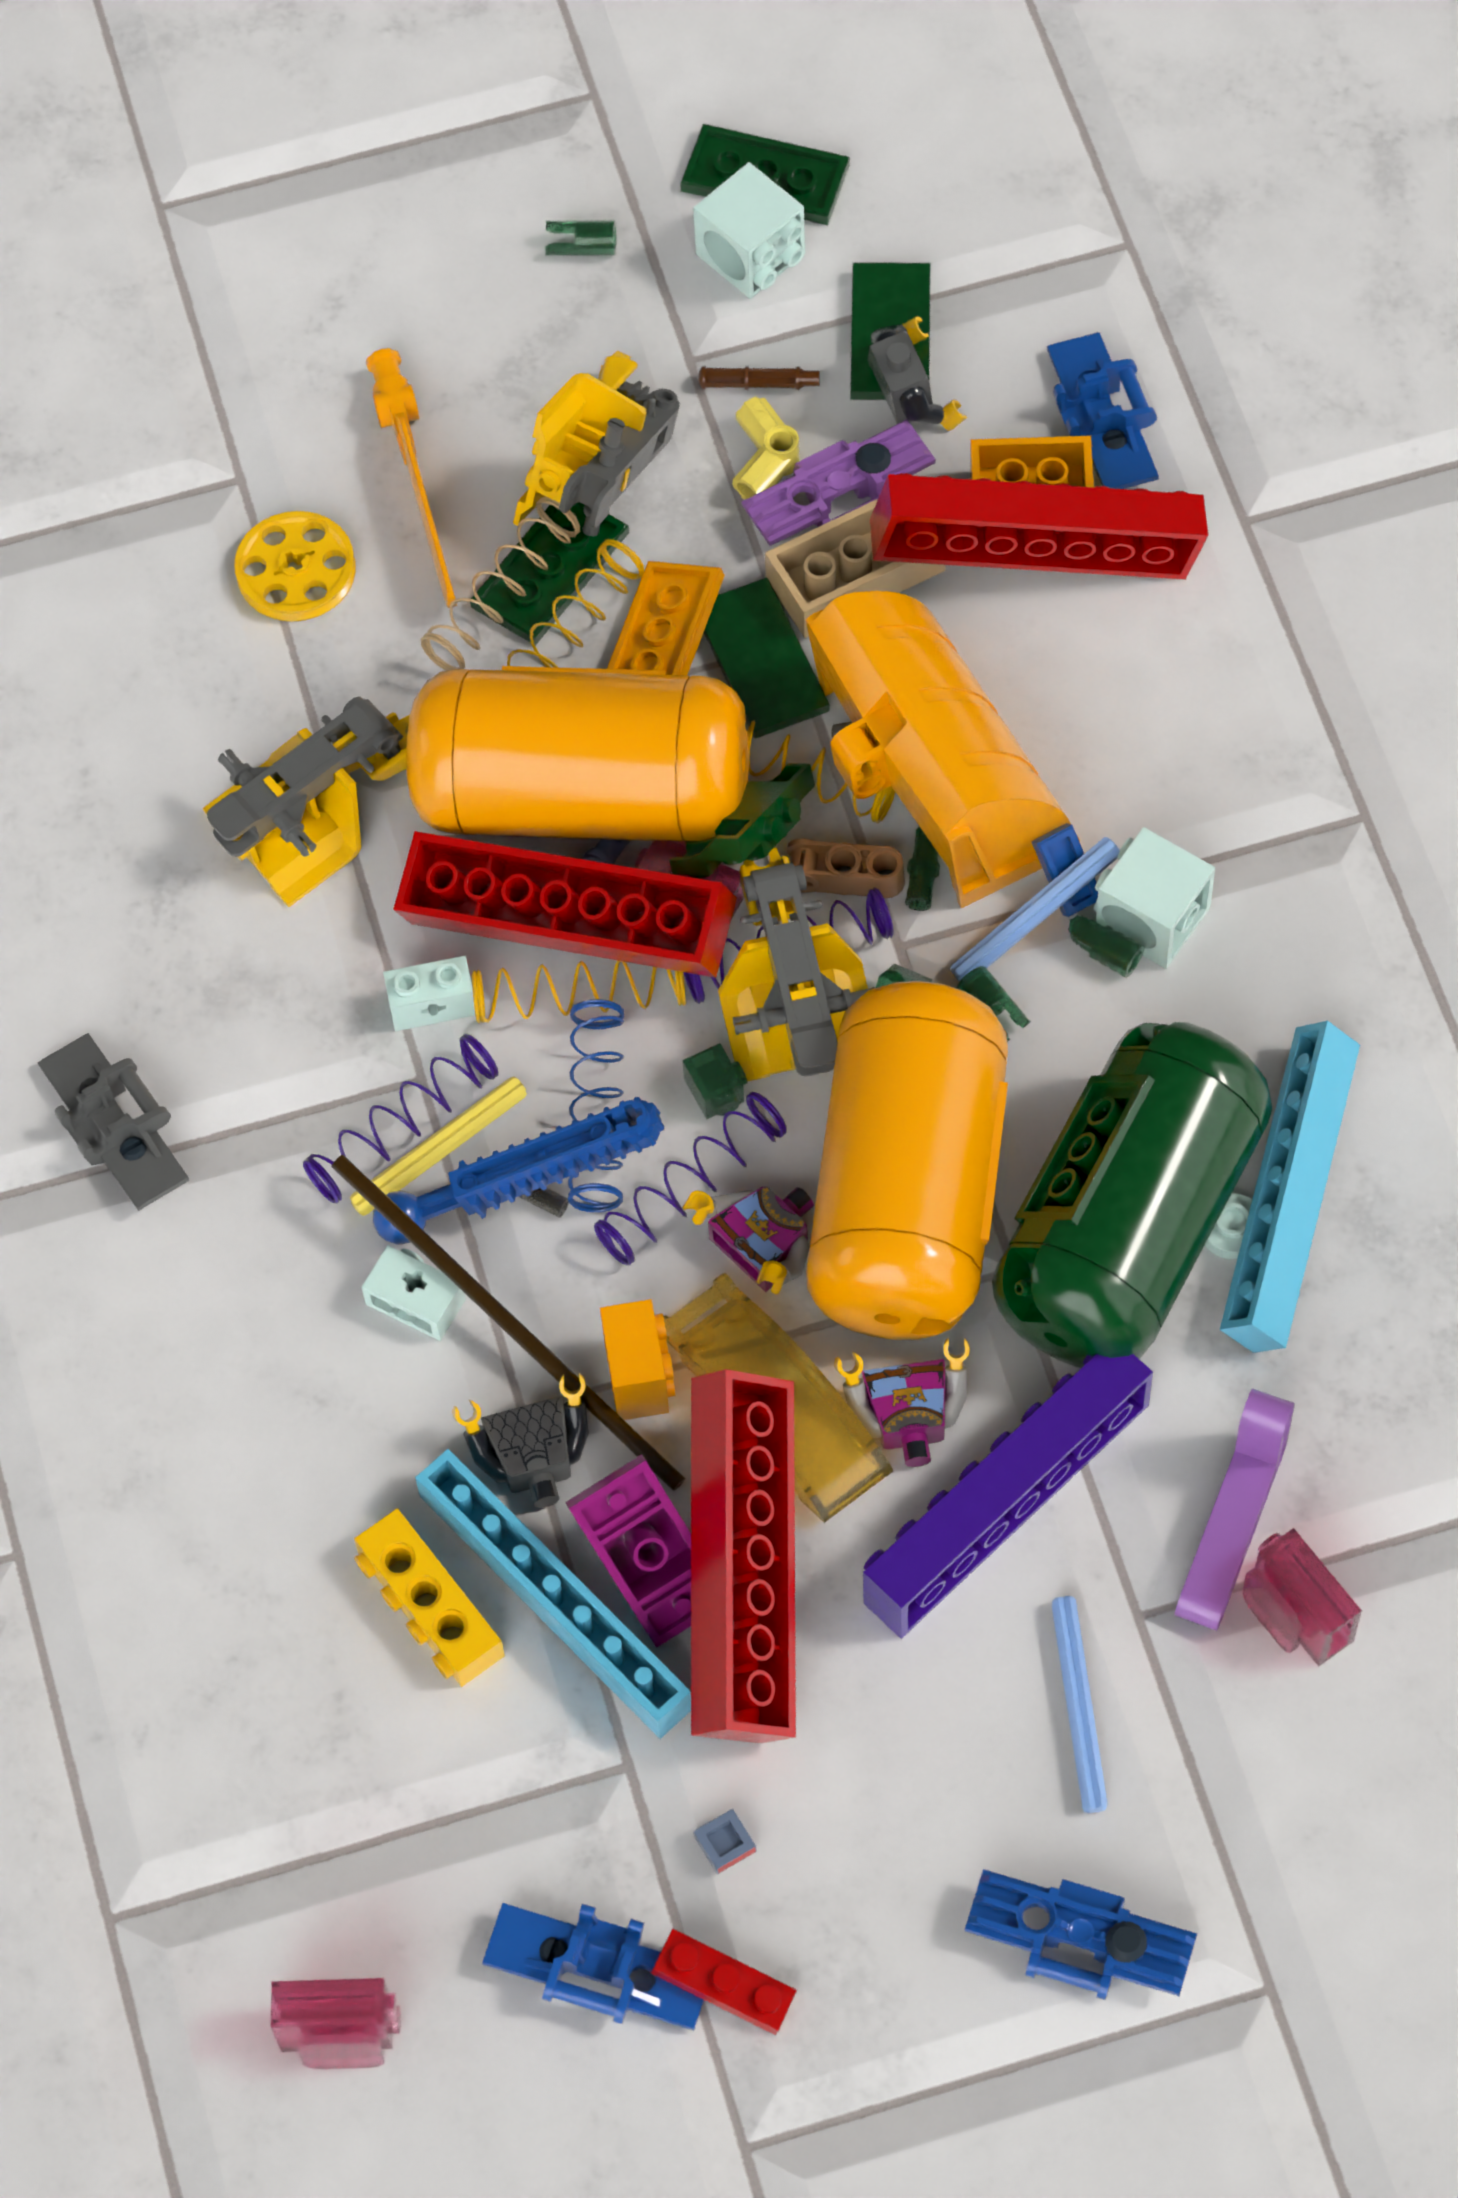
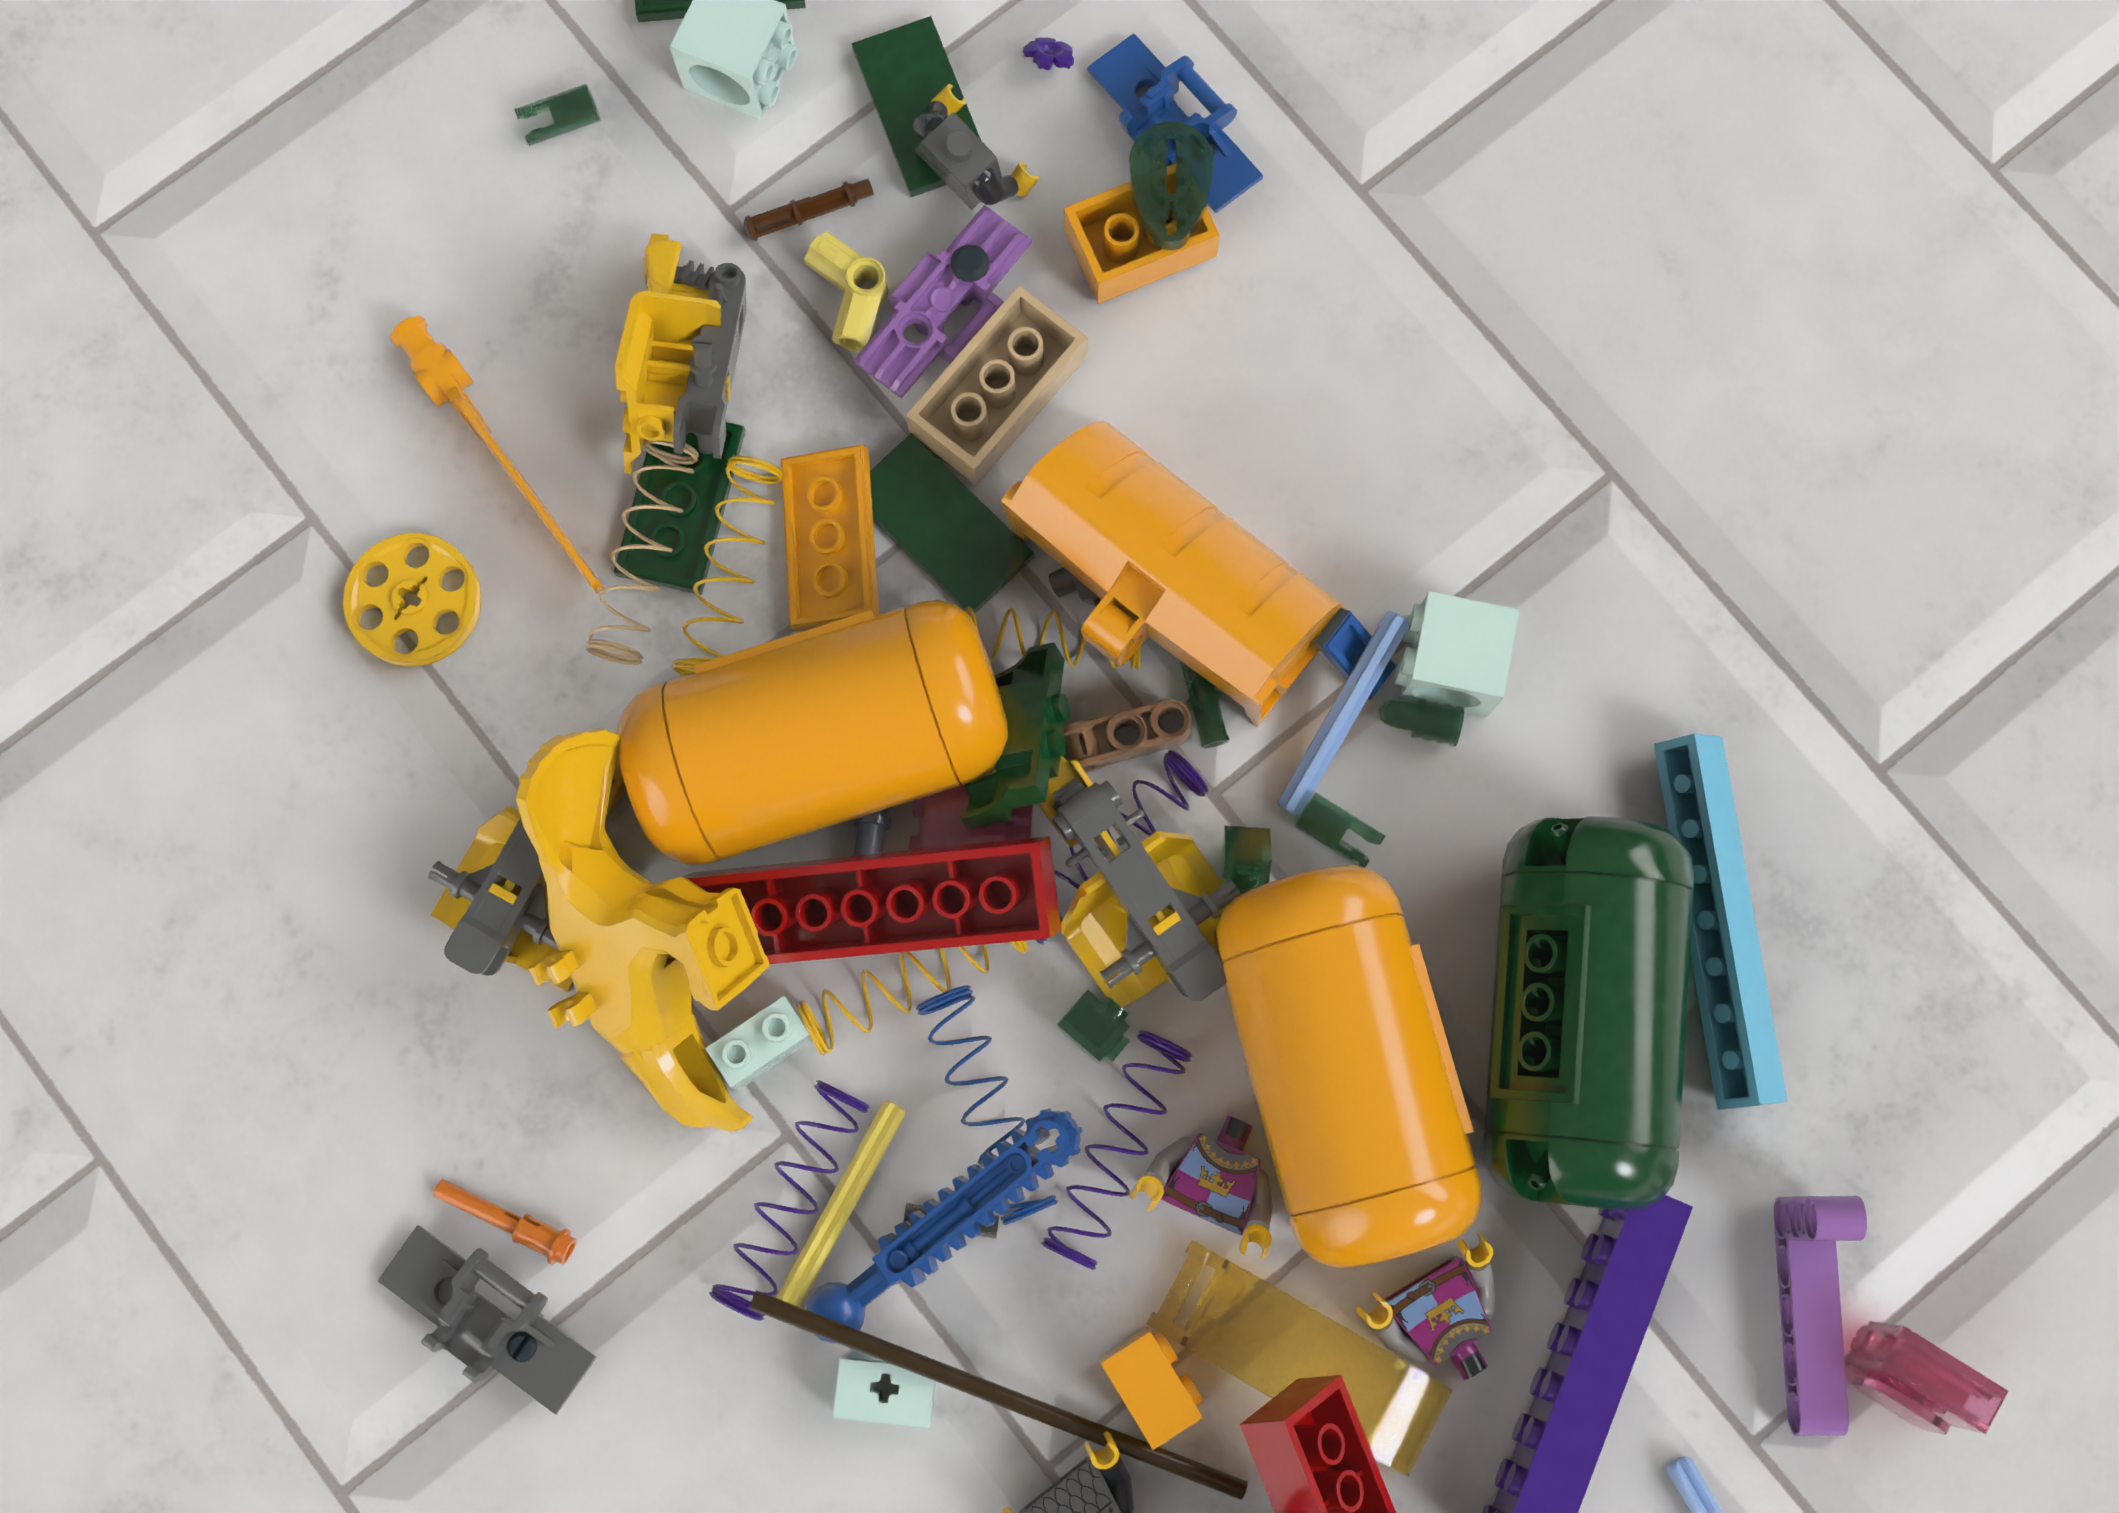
camera: 25 degrees left, 15 degrees up
(194, 1087) = (526, 1231): none -> orange pin
(359, 852) = (632, 942): none -> yellow animal
(1019, 324) = (1048, 51): none -> dark purple plant
(1038, 526) = (1176, 286): red brick -> none
(1053, 436) = (1149, 178): none -> clear green piece

